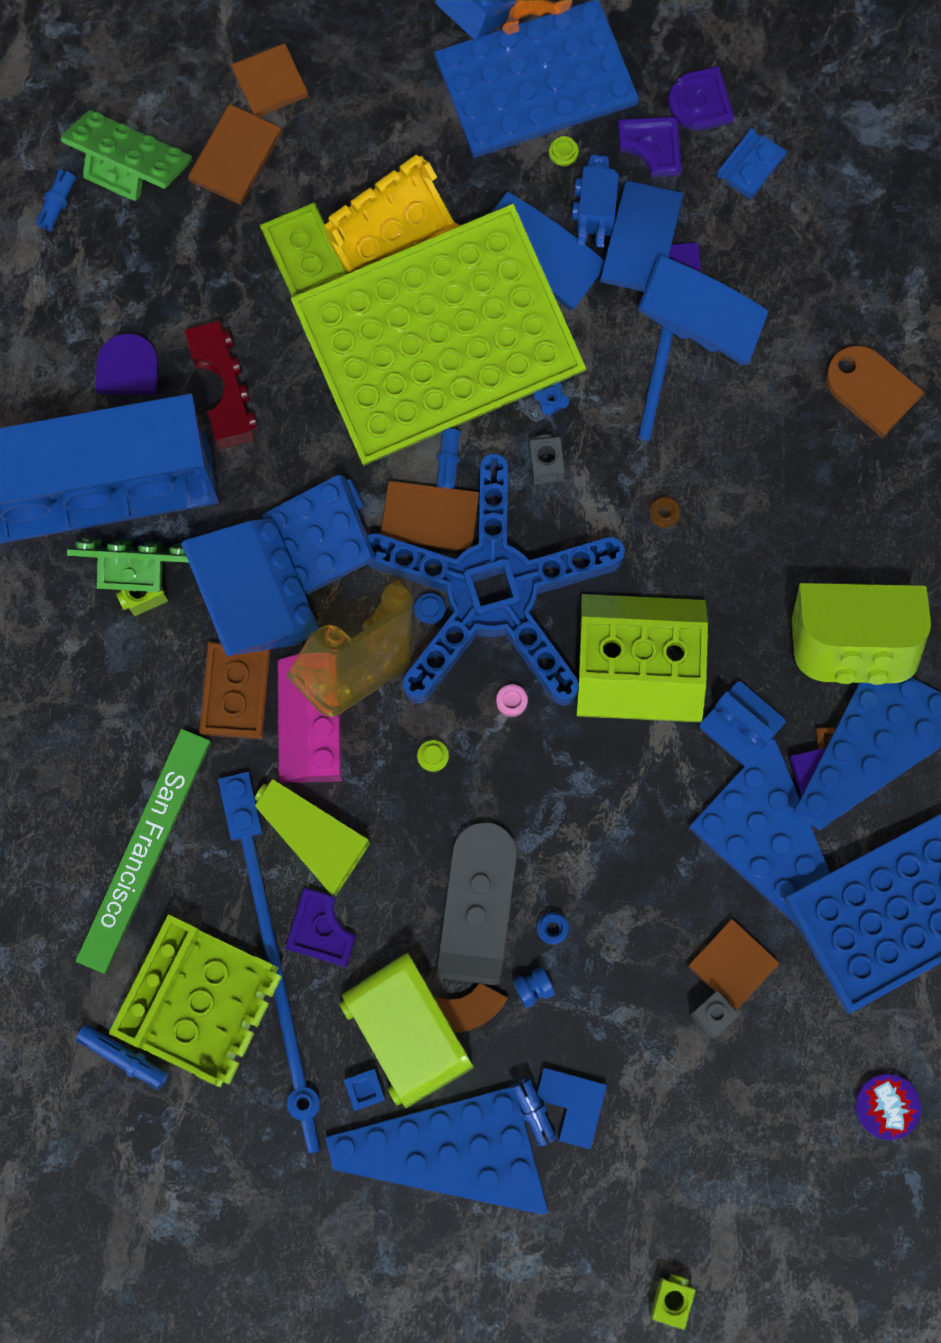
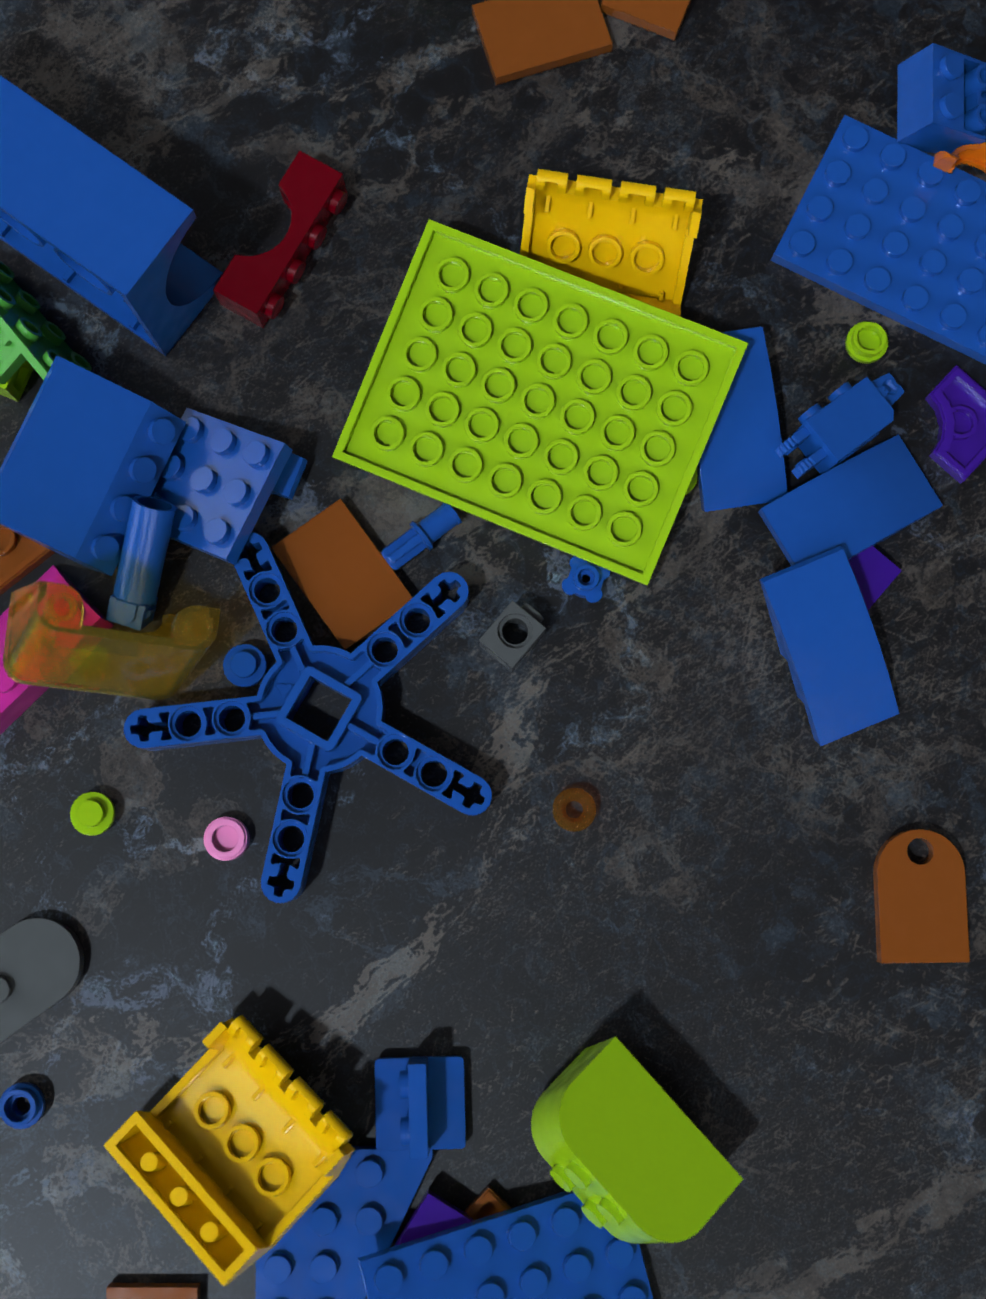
camera: 45 degrees right, 5 degrees up
(127, 366) = (219, 135): dark purple tile -> none
(302, 250) = (496, 183): lime tile -> none
(324, 597) = (141, 562): none -> blue piece
(642, 678) = (417, 910): lime slope -> none
(655, 385) = (703, 672): blue bar -> none
(679, 822) = (234, 1150): none -> yellow slope

